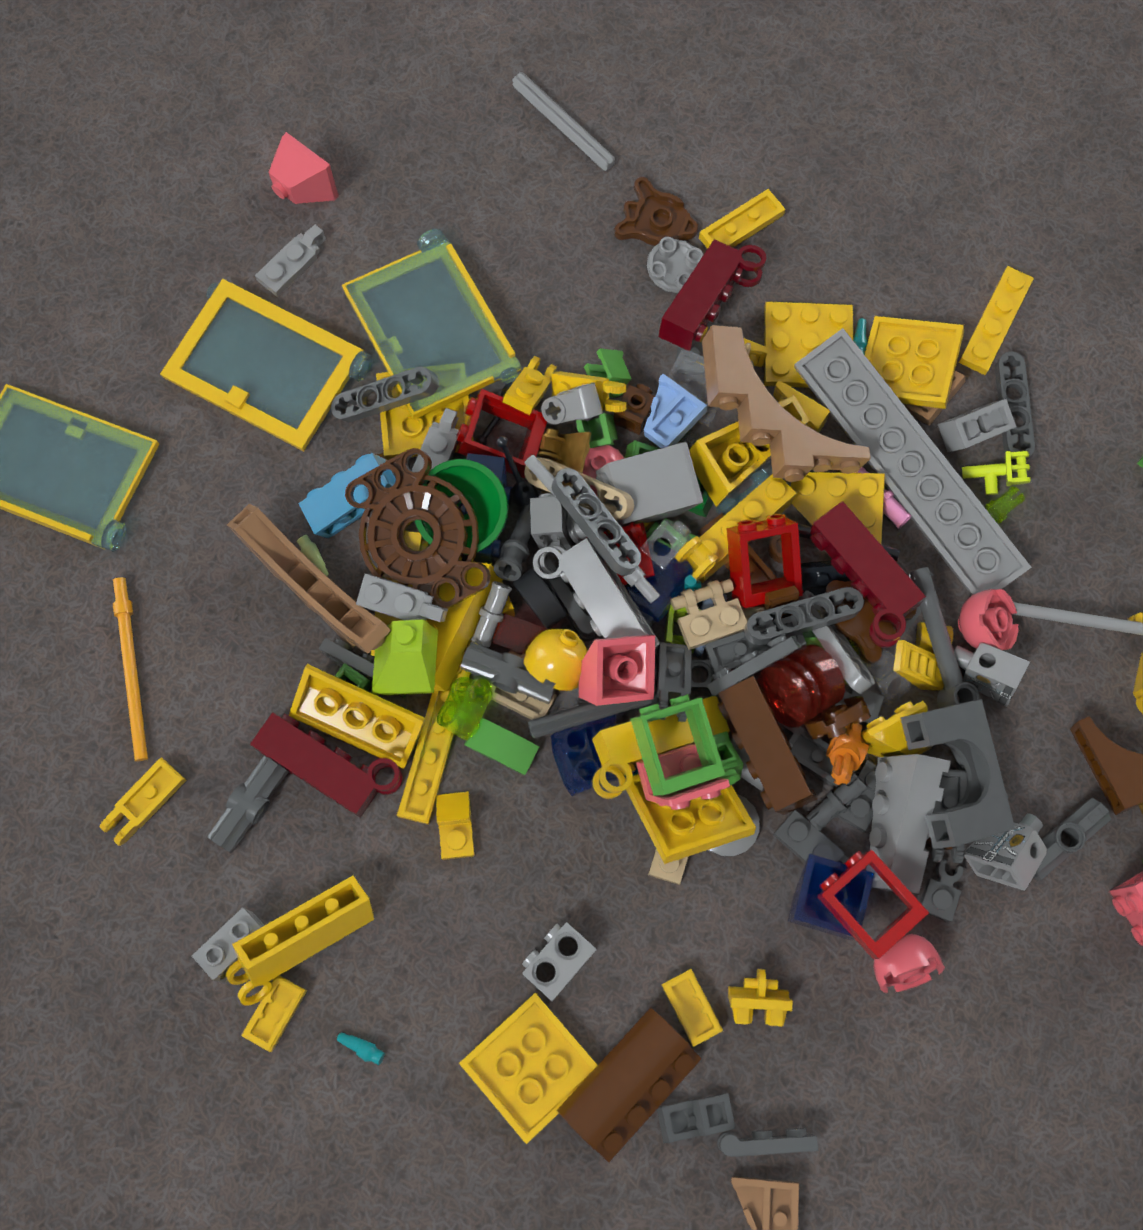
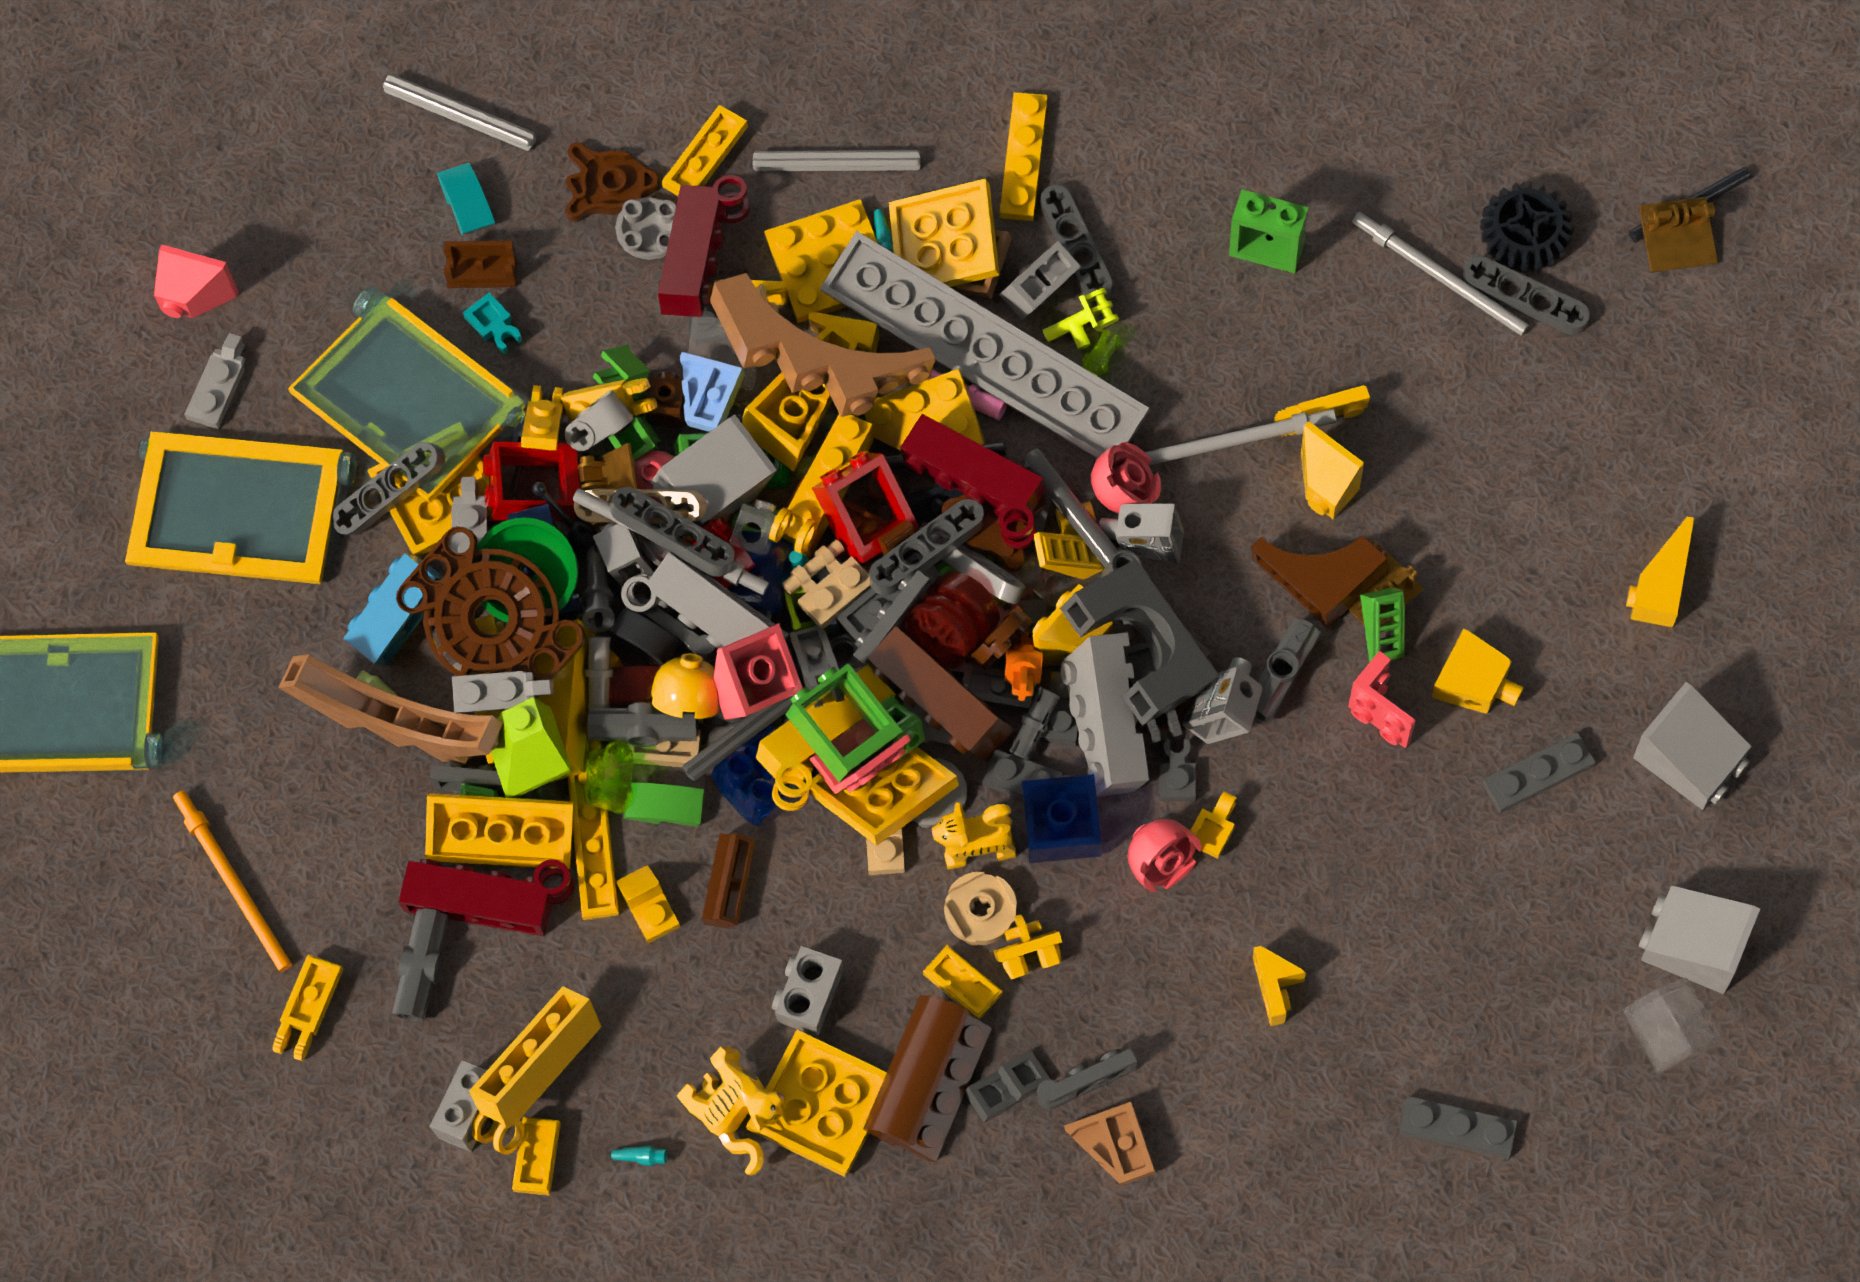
camera: 15 degrees left, 5 degrees down
(449, 1039) = (726, 1106): none -> yellow animal
(522, 292) = (491, 320): none -> teal plate
(529, 834) = (728, 880): none -> reddish brown piece
(531, 243) = (480, 264): none -> reddish brown hinge
(541, 189) = (466, 198): none -> teal slope
(742, 930) = (987, 889): none -> tan plate
(752, 885) = (975, 835): none -> yellow animal
(844, 267) = (837, 160): none -> light grey axle
(897, 929) = (1121, 837): red window -> none
(957, 955) = (1213, 827): none -> yellow plate
(961, 1114) = (1272, 974): none -> yellow slope

